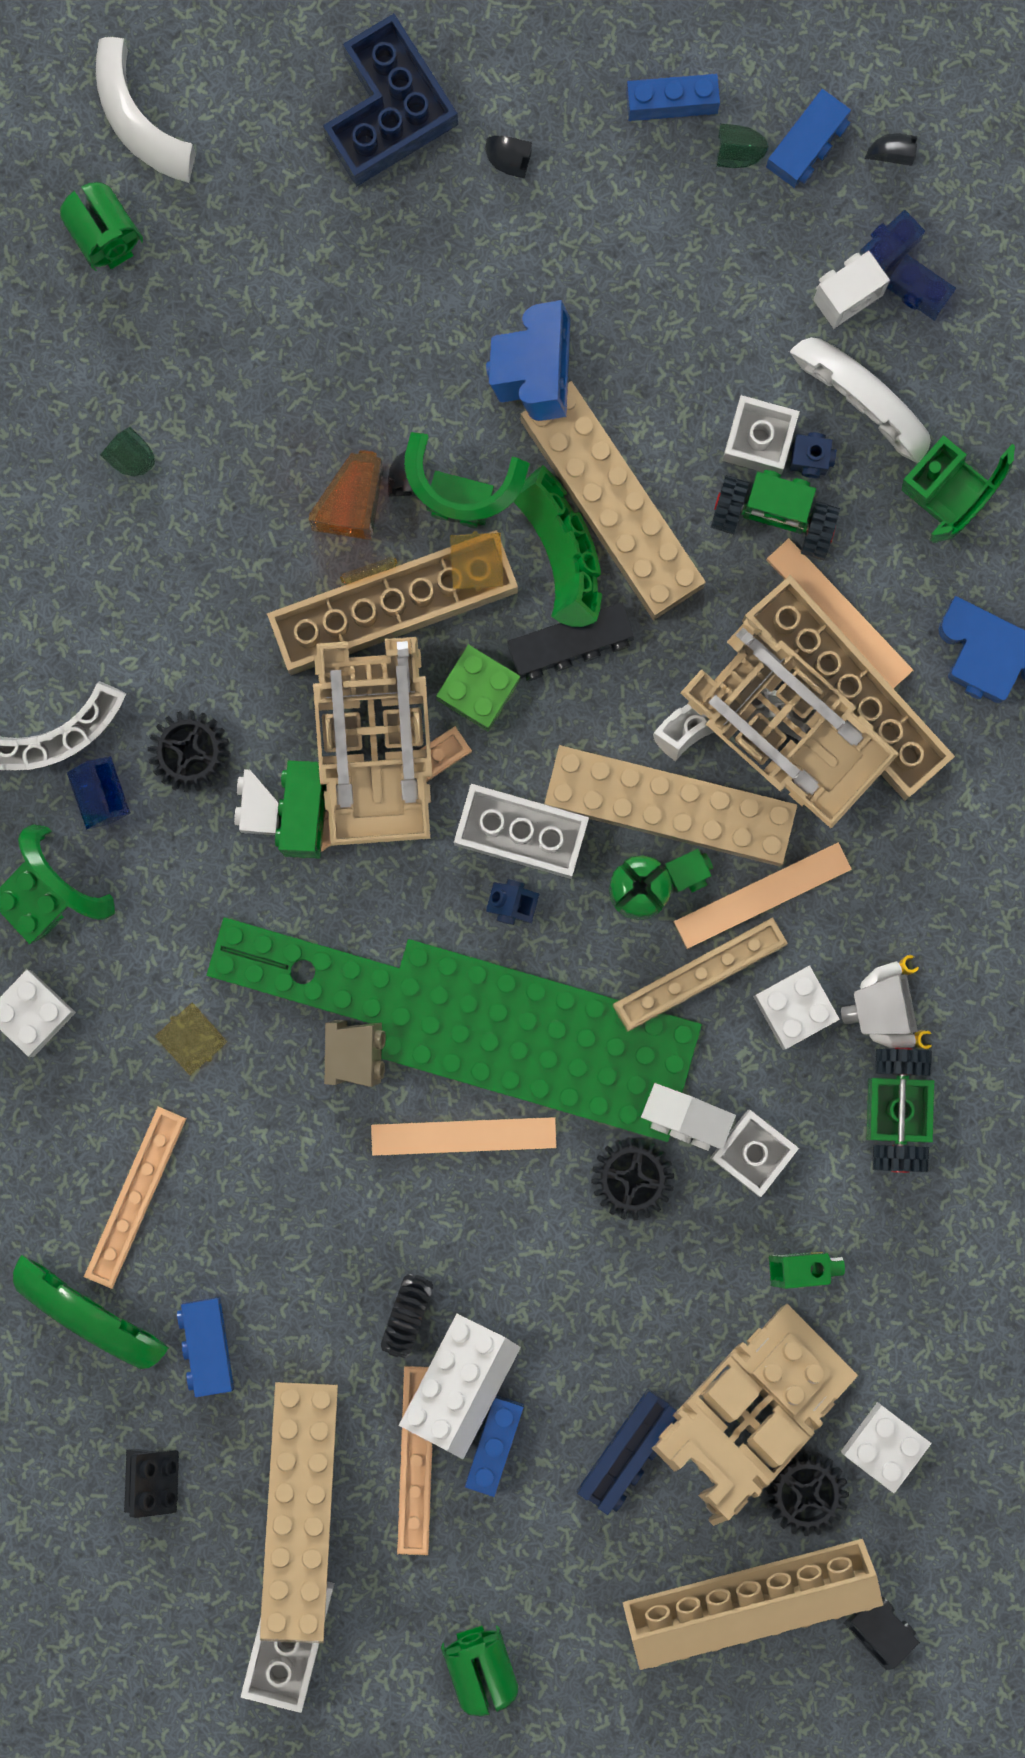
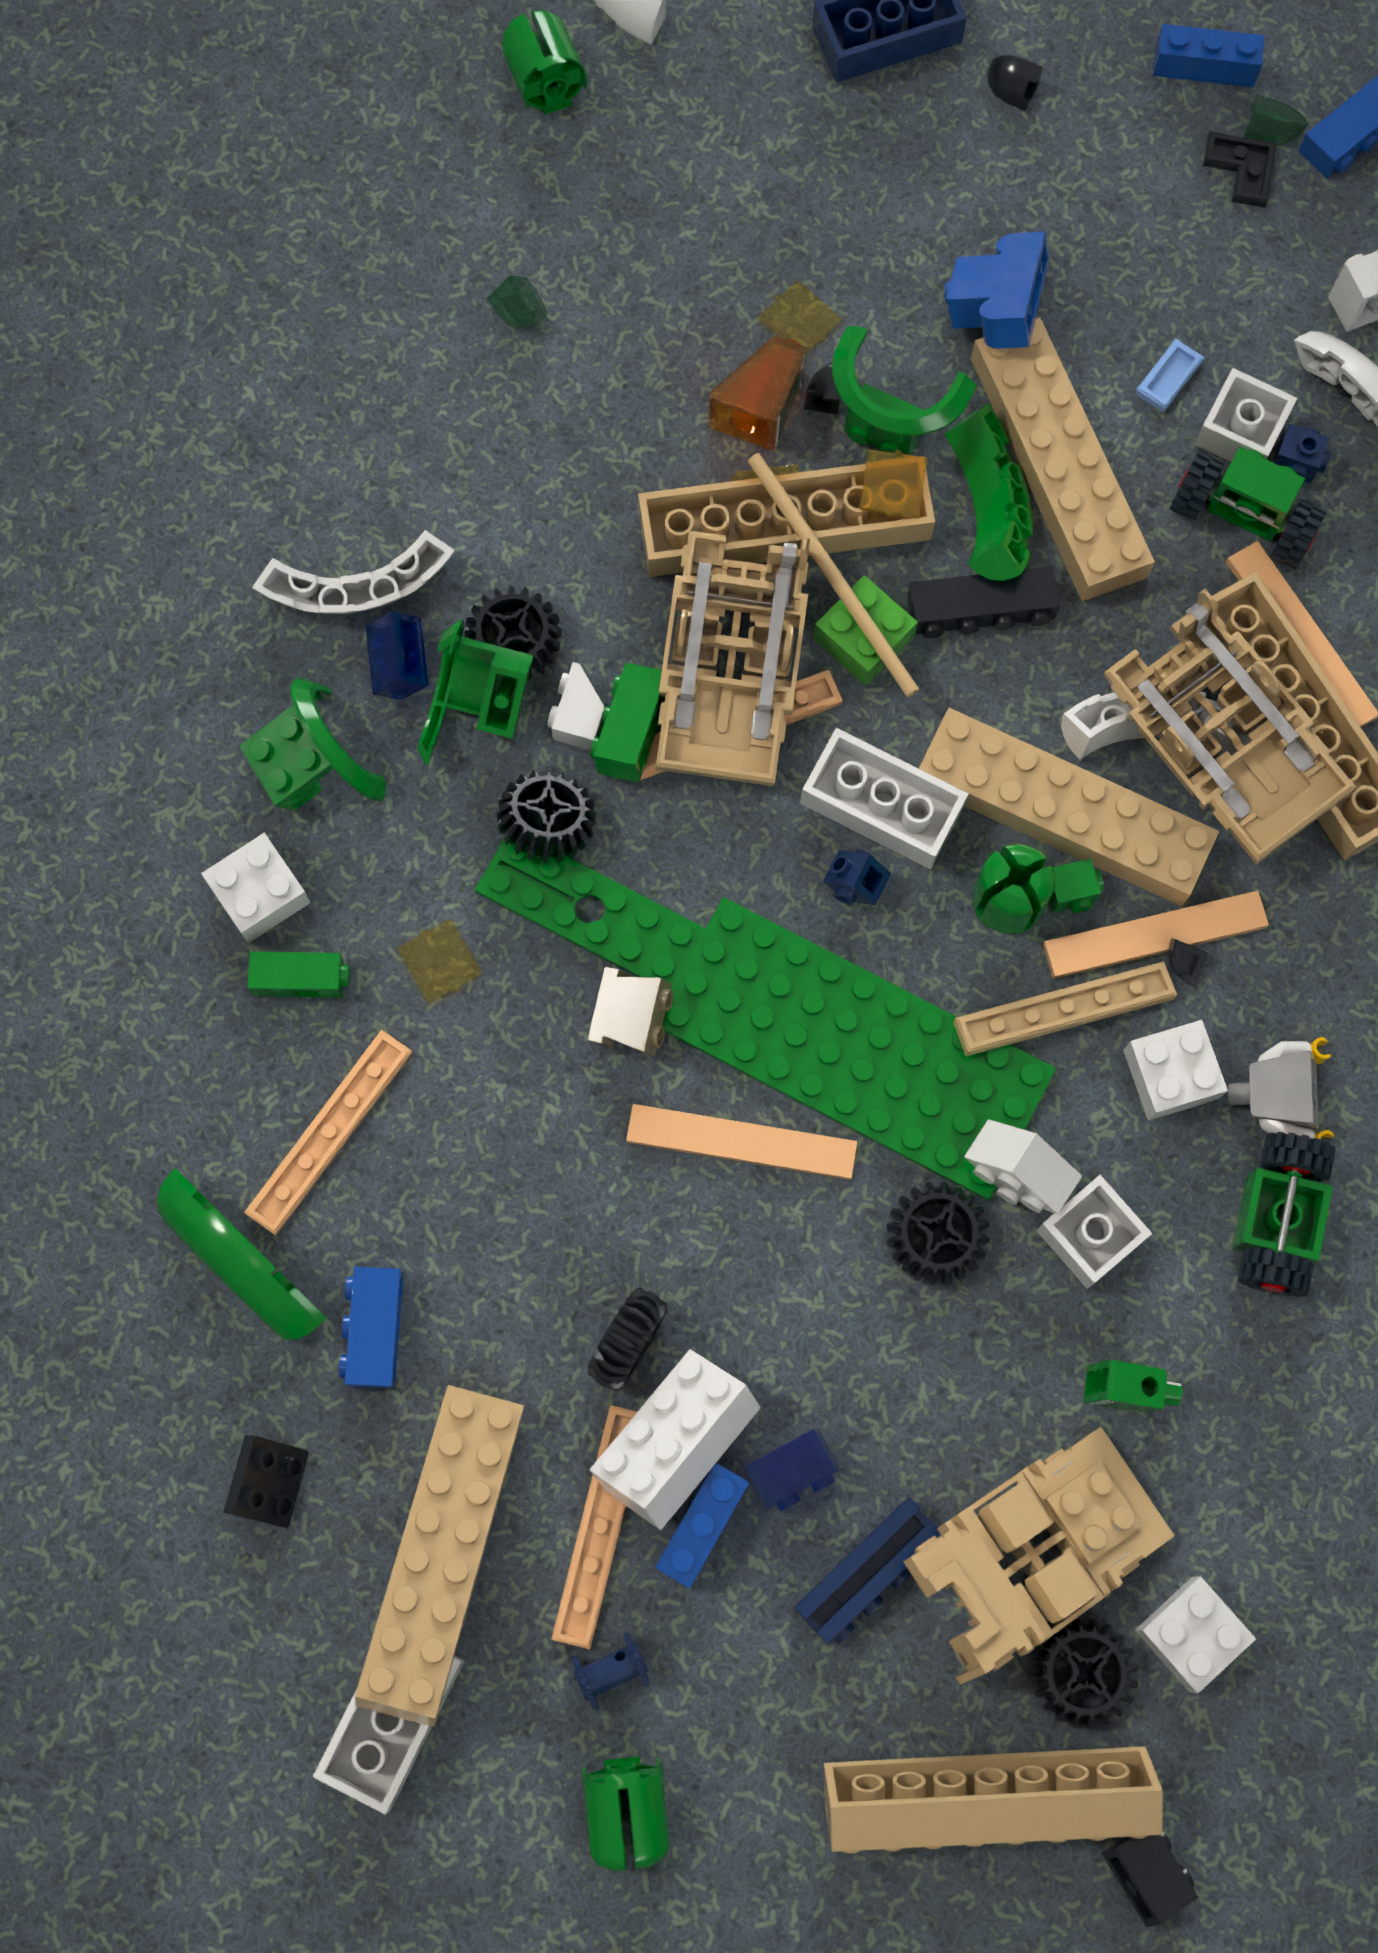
camera: 10 degrees right, 10 degrees down
(80, 1076) = (297, 974): none -> green brick
(170, 801) = (476, 681): none -> green piece
(261, 901) = (524, 820): none -> black gear
(369, 414) = (799, 316): none -> clear yellow piece
(441, 653) = (834, 576): none -> tan piece
(447, 1569) = (610, 1671): none -> dark blue hose
(555, 1388) = (792, 1469): none -> clear blue brick
(690, 402) = (1169, 375): none -> light blue tile
(724, 184) = (1249, 159): none -> black tile
(790, 913) = (1186, 961): none -> black tile

